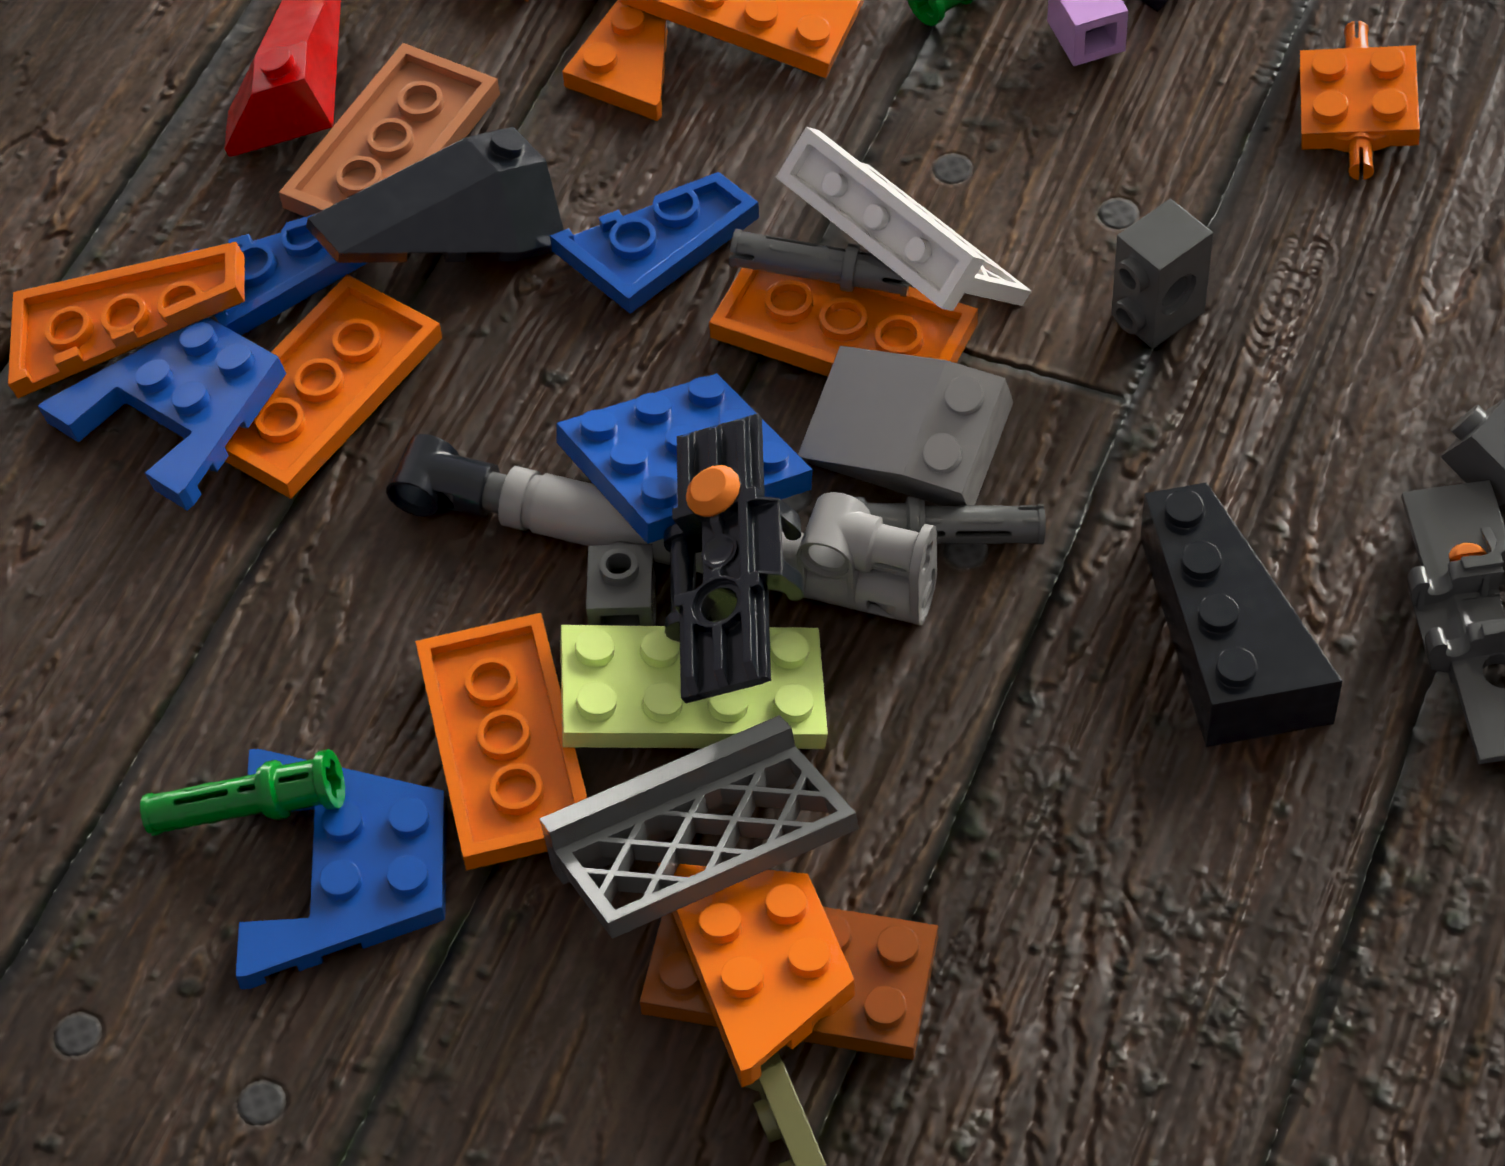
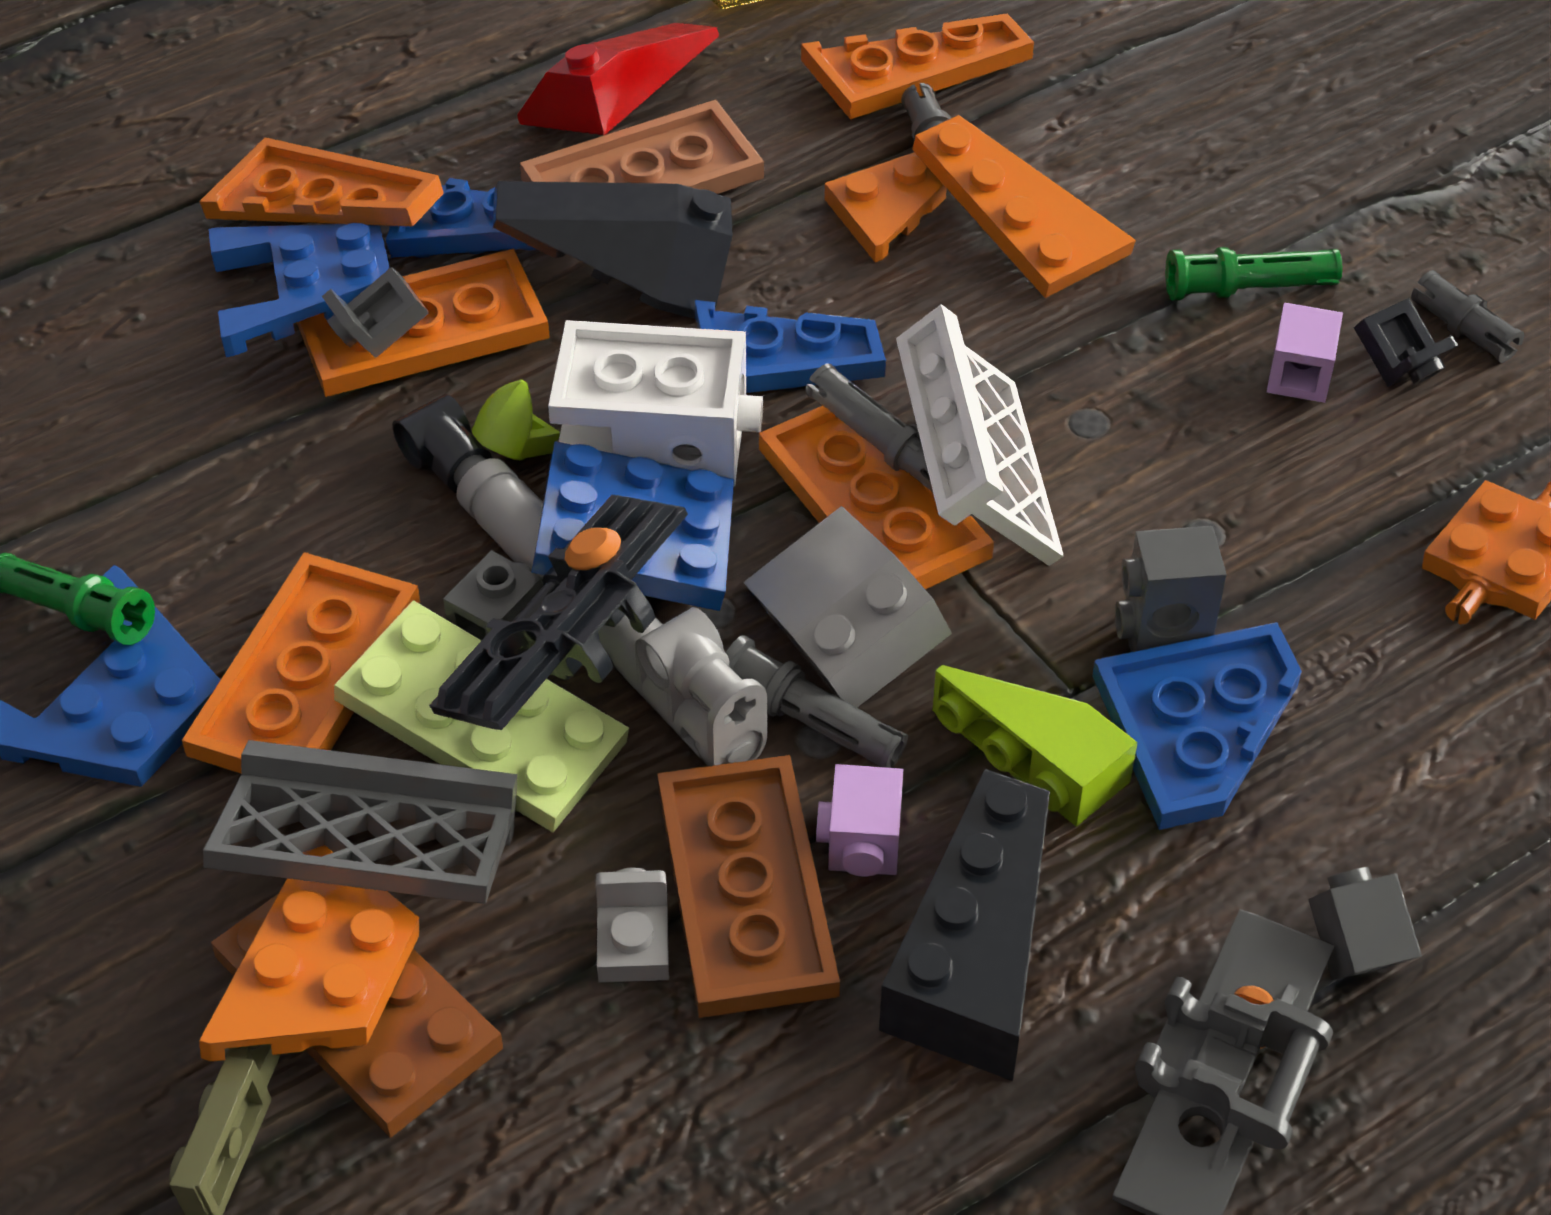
camera: 30 degrees right, 5 degrees down
(295, 395) = (377, 314): none -> dark grey bracket
(498, 427) = (510, 427): none -> lime plate
(606, 336) = (655, 393): none -> white torso
(961, 782) = (632, 925): none -> light grey bracket
(1021, 695) = (747, 887): none -> dark orange plate
(1070, 591) = (862, 820): none -> lavender brick
(1139, 447) = (1038, 739): none -> lime slope
(1242, 362) = (1198, 715): none -> blue plate

